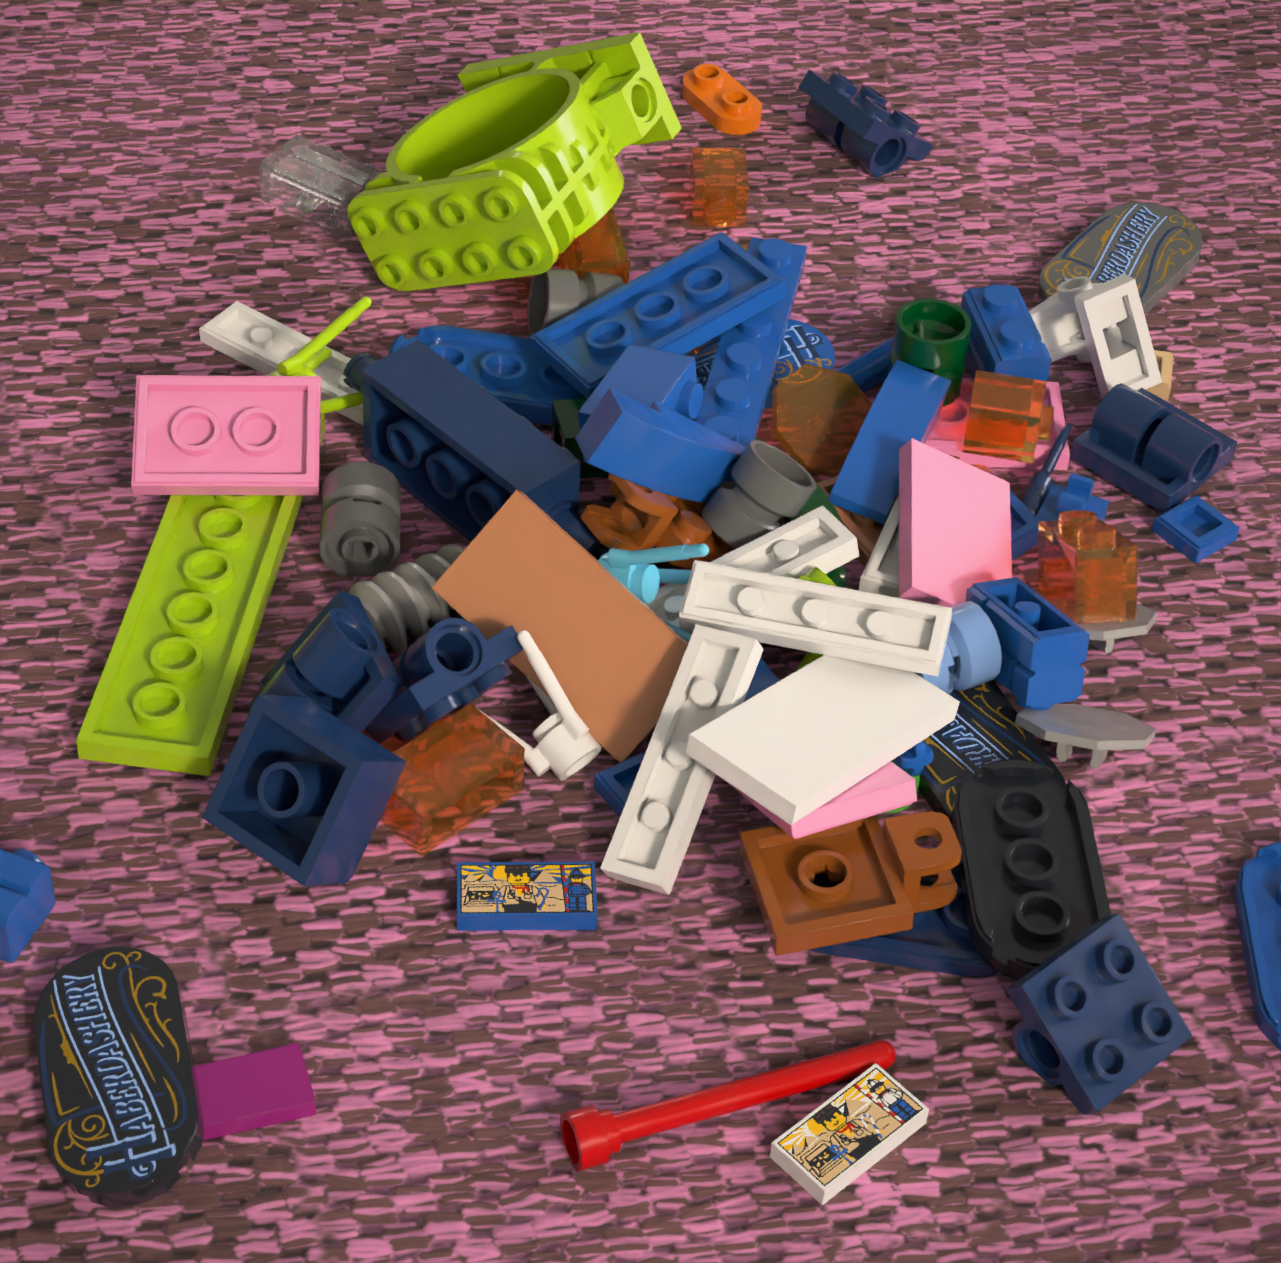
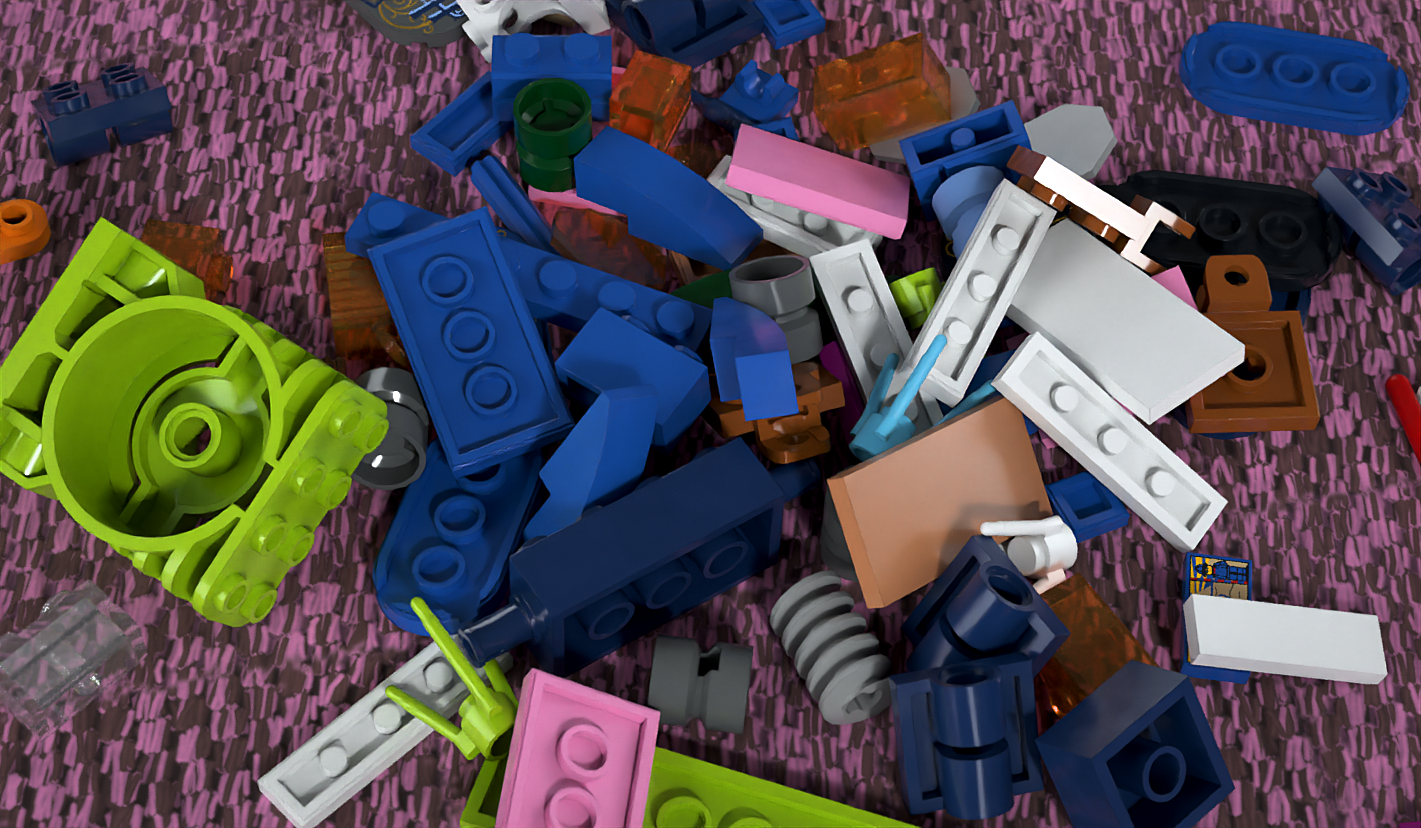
camera: 80 degrees left, 10 degrees up
(498, 938) = (1284, 639): none -> white tile
(542, 377) = (598, 458): none -> blue slope
(965, 720) = (1094, 209): none -> plate

